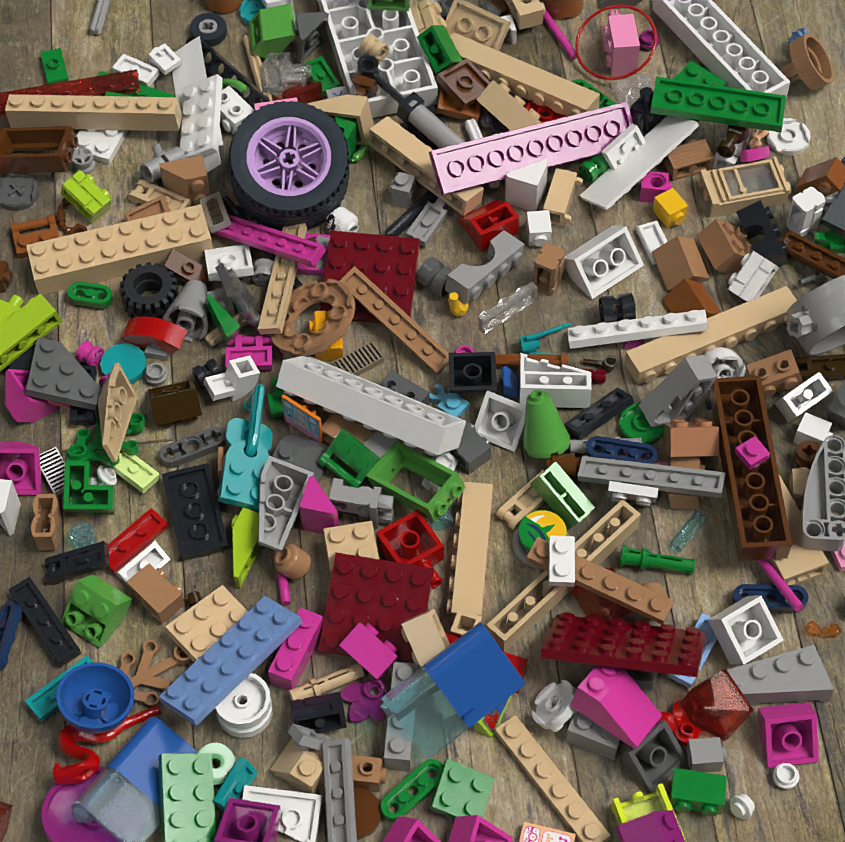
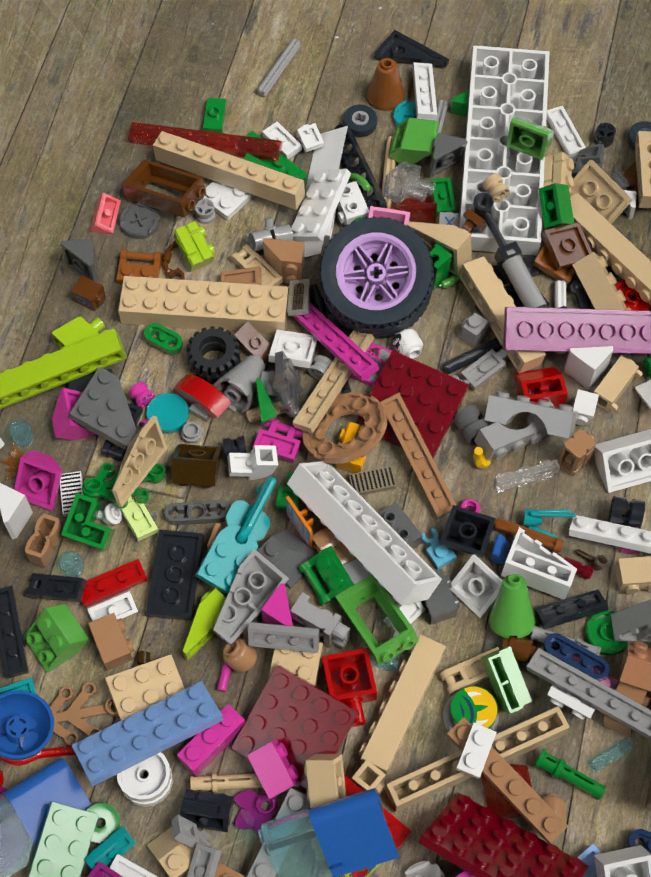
camera: 20 degrees right, 5 degrees up
(332, 525) = (283, 637): none -> light grey plate
(463, 250) = (558, 420): none -> light grey arch

